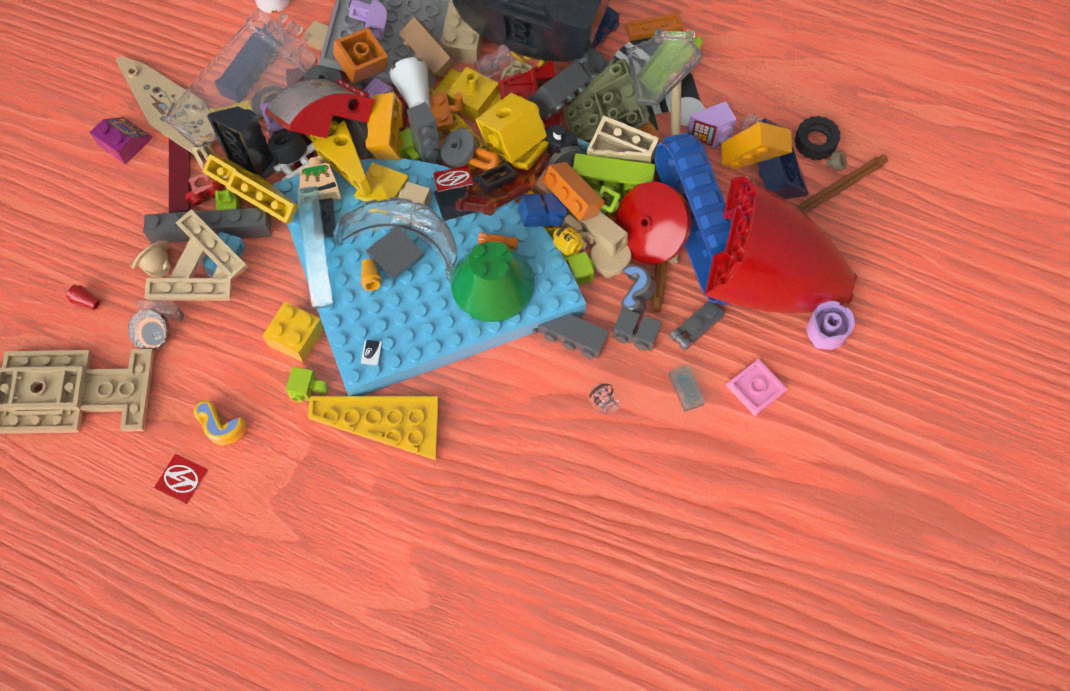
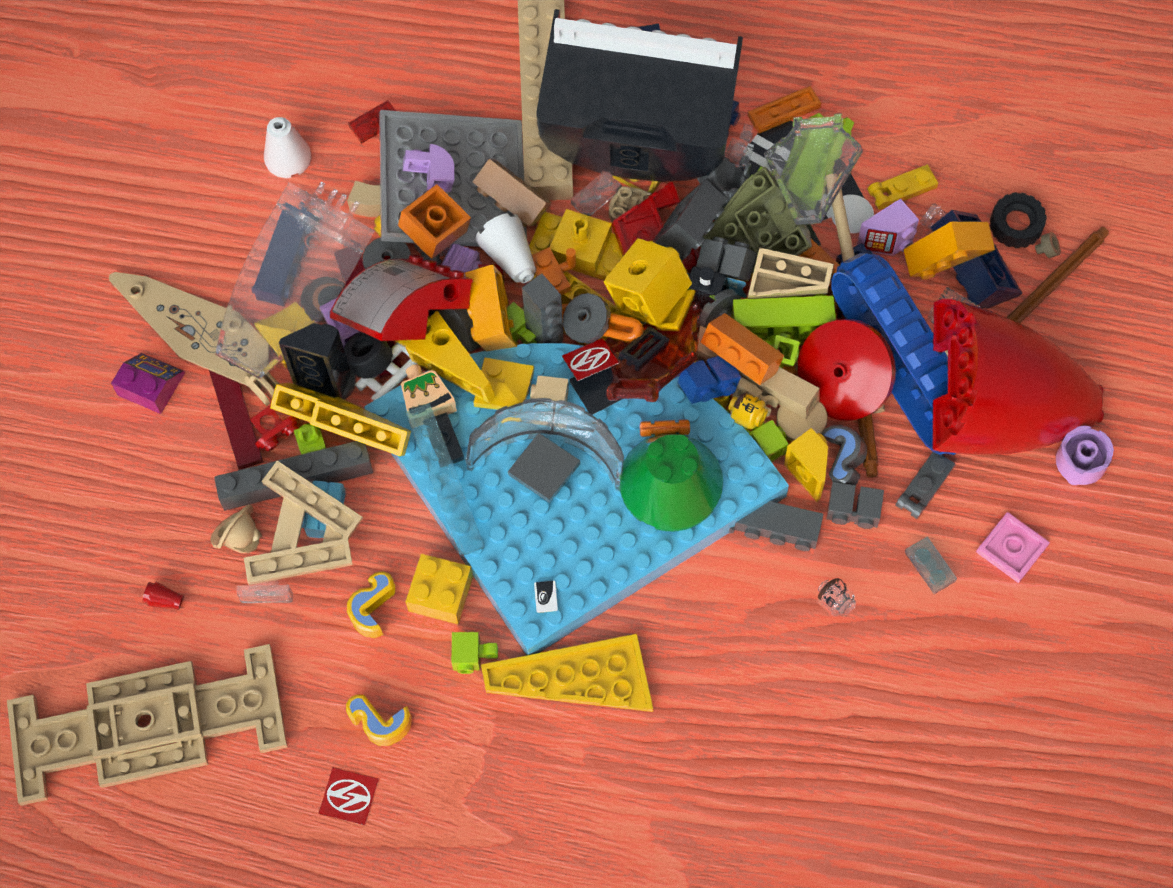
camera: 10 degrees left, 0 degrees up
(148, 329) = (259, 621): tile -> none
(236, 330) = (367, 600): none -> yellow animal
(370, 276) = (520, 501): light orange cone -> none
(579, 122) = (727, 259): none -> dark grey piece
(606, 288) = (808, 461): none -> yellow slope
(615, 48) = (741, 150): none -> clear plate
(734, 97) = (903, 186): none -> yellow plate

